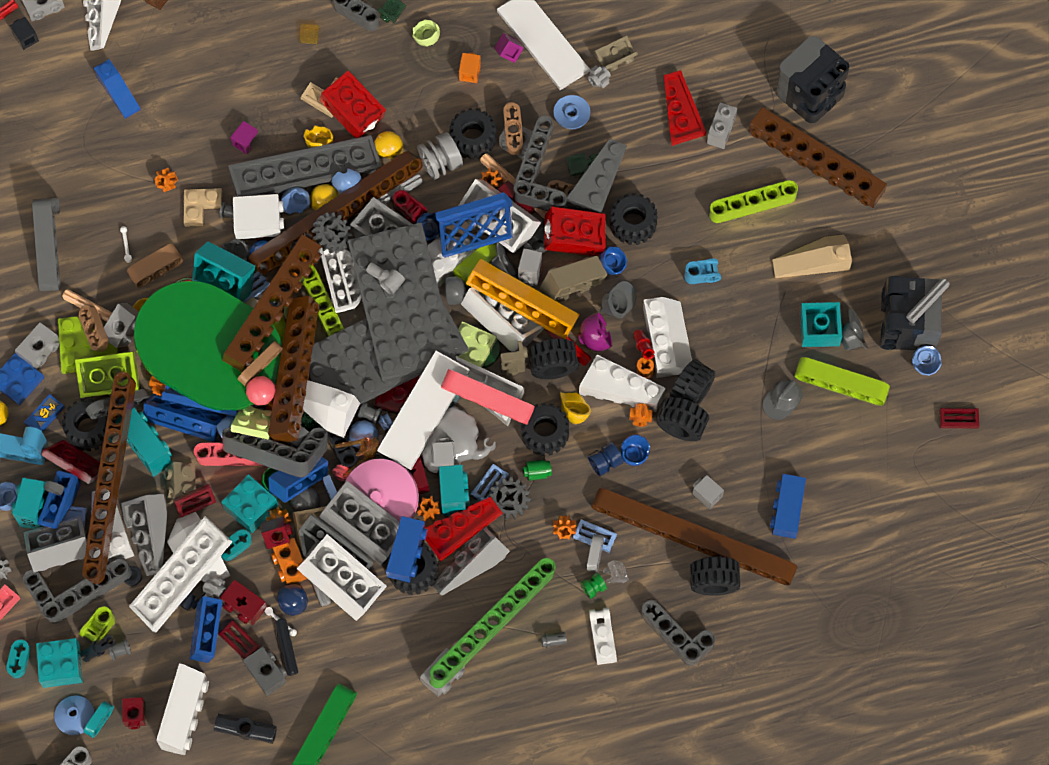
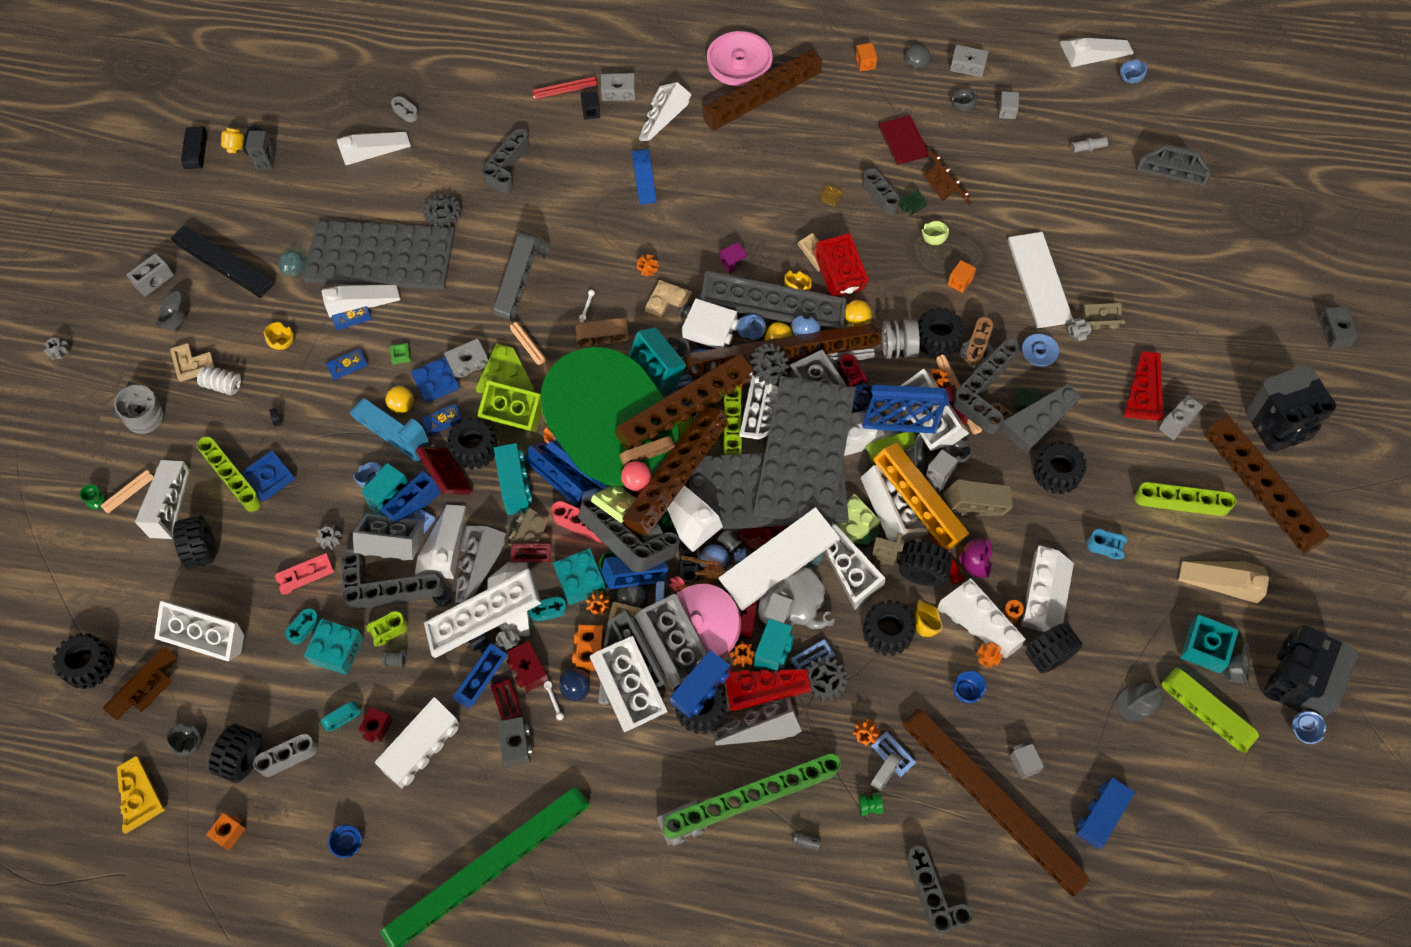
camera: 25 degrees right, 5 degrees down
(53, 487) = (409, 484): dark grey tile -> none
(76, 724) = (333, 700): medium blue dish -> none
(97, 339) = (520, 362): medium nougat beam -> none
(97, 648) = (373, 648): black pin -> none
(101, 407) = (504, 434): dark grey beam -> none
(112, 486) = (457, 503): reddish brown beam -> none
(116, 335) = (540, 367): light grey brick -> none
(258, 730) = (459, 781): black piece -> none
(276, 539) = (582, 618): dark red brick -> none
(286, 647) = (546, 727): black axle -> none
(388, 280) = (800, 425): light grey pin -> none
(455, 290) = (860, 463): dark grey hair -> none
(487, 396) = (845, 571): coral beam -> none
(508, 47) = (1005, 273): magenta panel -> none
(537, 470) = (864, 663): green brick -> none
(574, 231) = (997, 455): red piece -> none
(603, 636) = (857, 861): white plate -> none
(604, 459) = (936, 682): dark blue wheel -> none
(613, 260) = (1024, 497): blue hair -> none
(617, 571) = (900, 802): clear tile -> none
(619, 300) = (1013, 536): dark grey piece -> none
(643, 344) = (1021, 588): red pin -> none
(682, 419) = (1030, 677): black tyre -> none
(715, 576) = (999, 852): black tyre -> none
(927, 300) = (1338, 666): light grey axle -> none
(963, 425) = (1308, 787): dark red tile -> none

